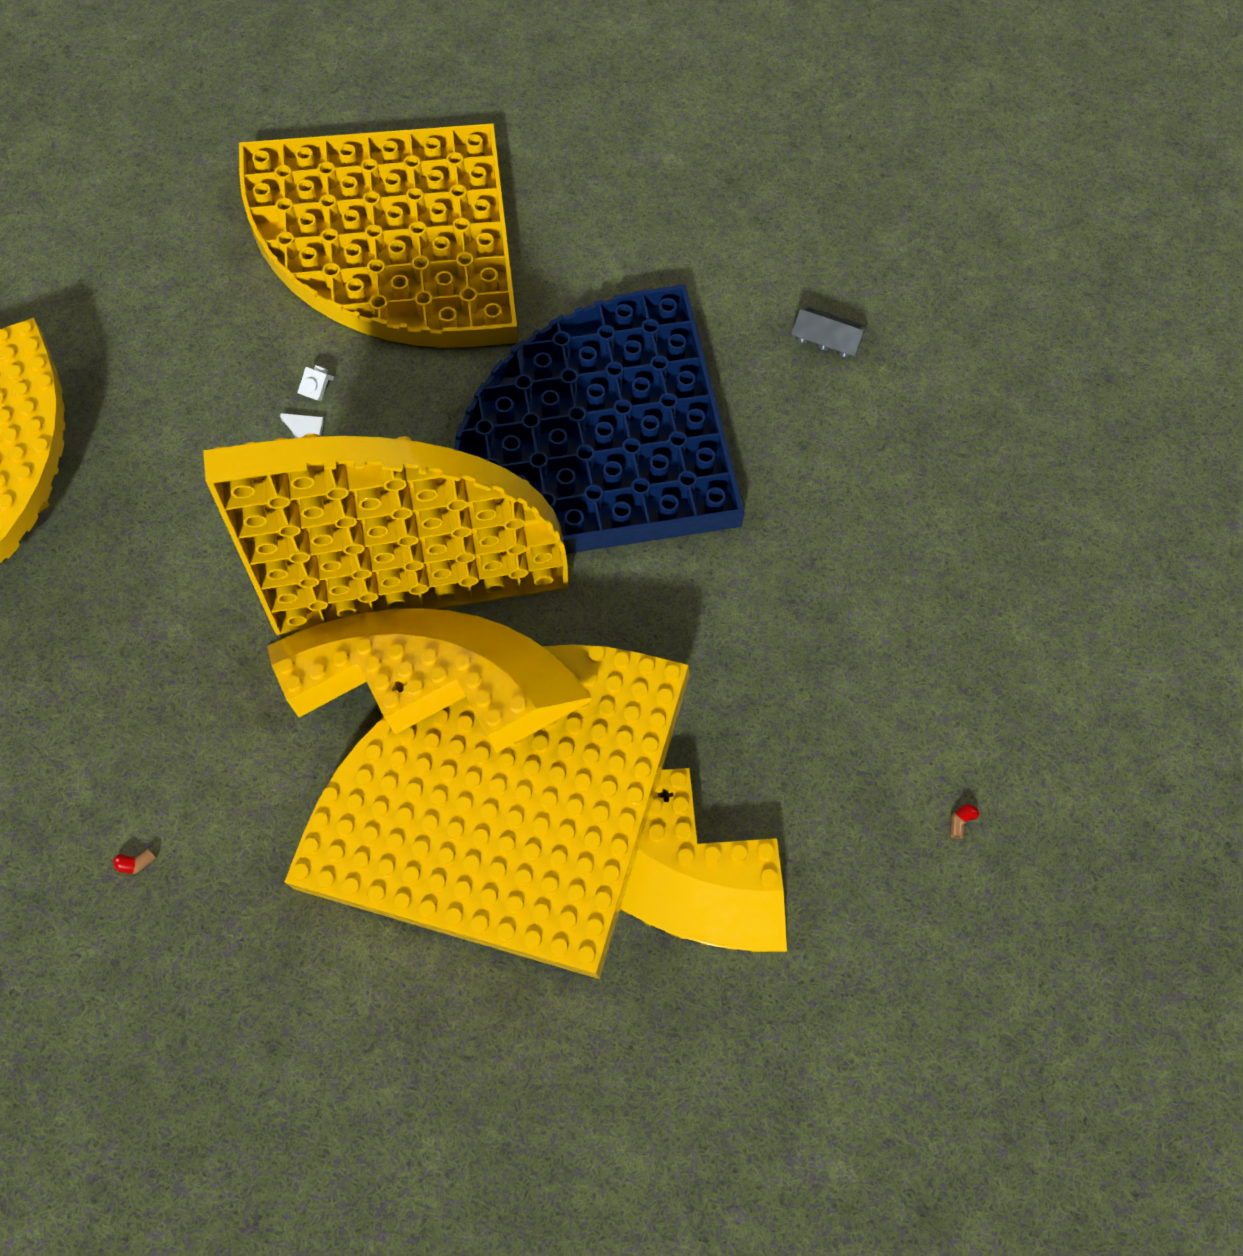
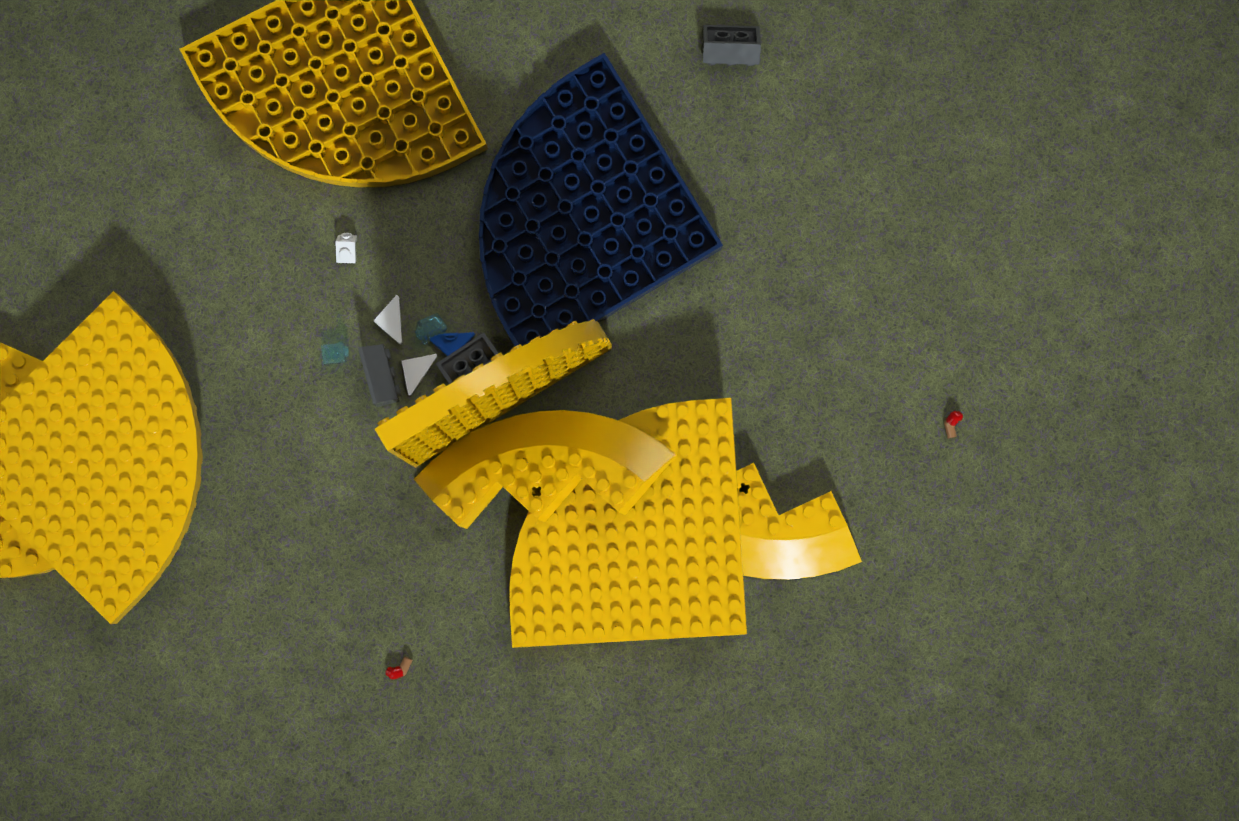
camera: 20 degrees left, 20 degrees up
(302, 425) = (358, 291): white tile -> none

